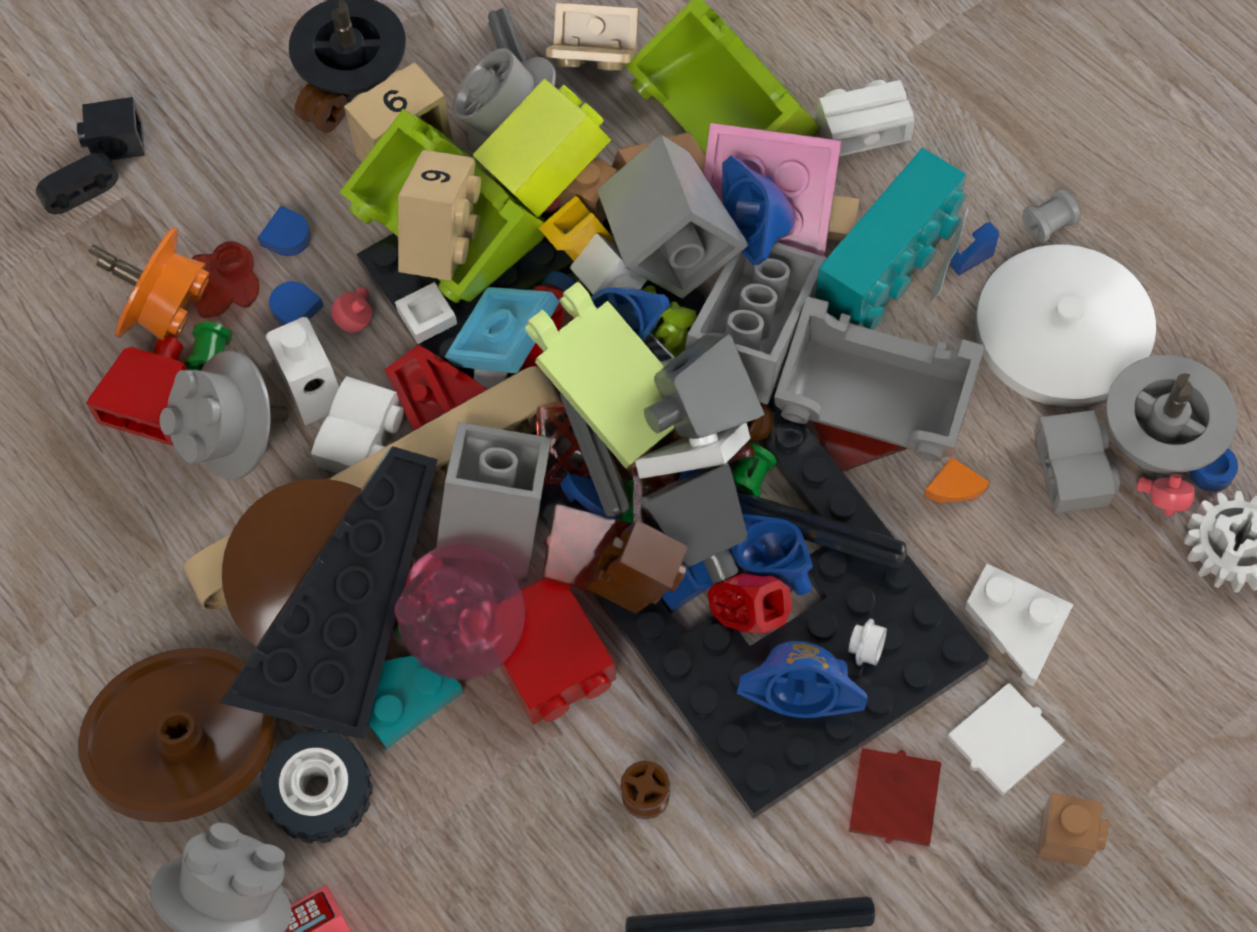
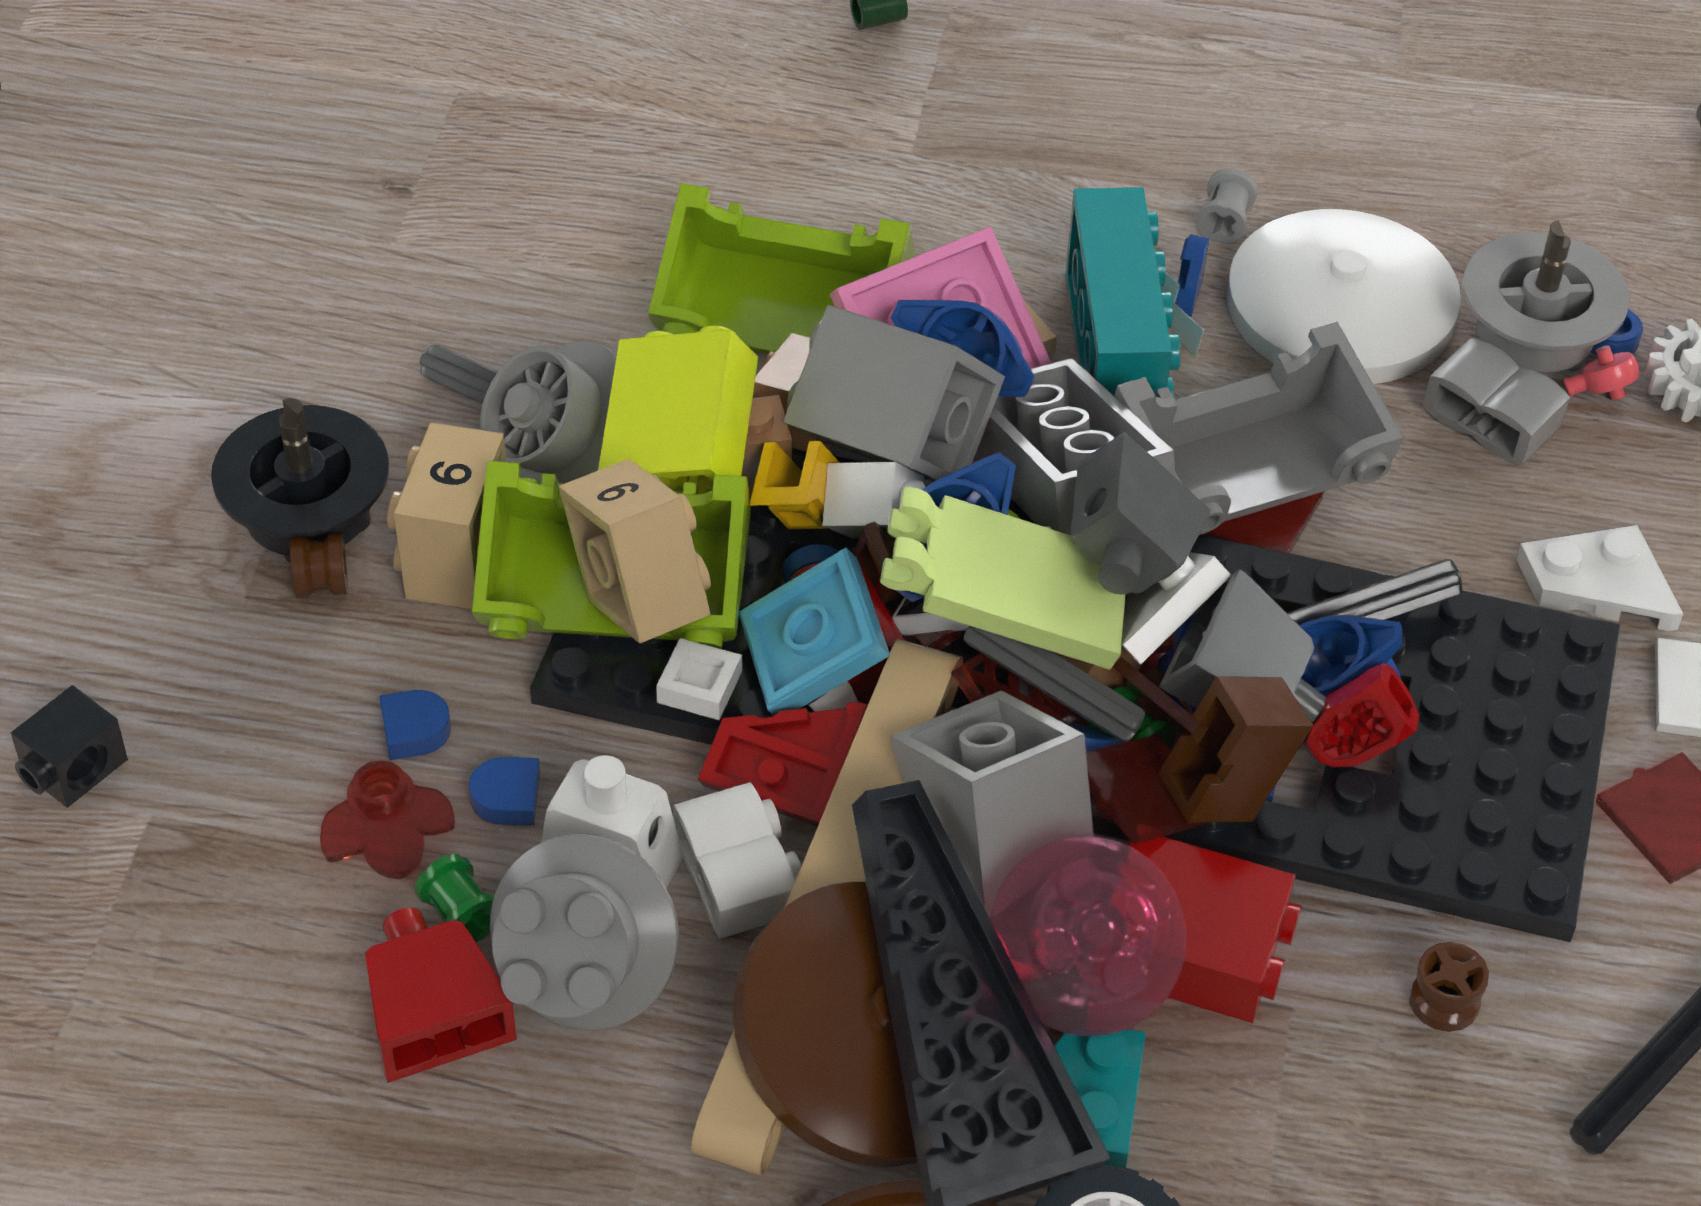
camera: 45 degrees left, 15 degrees down
(77, 183) = (81, 834): black beam -> none
(159, 290) = (343, 859): orange piece -> none
(352, 311) = (589, 741): coral piece -> none
(594, 34) = (576, 305): tan bracket -> none
(803, 683) = (1507, 750): blue hat -> none
(866, 116) = (956, 208): white brick -> none
(867, 642) = (1513, 677): white plate -> none
(956, 484) = (1407, 496): orange tile -> none

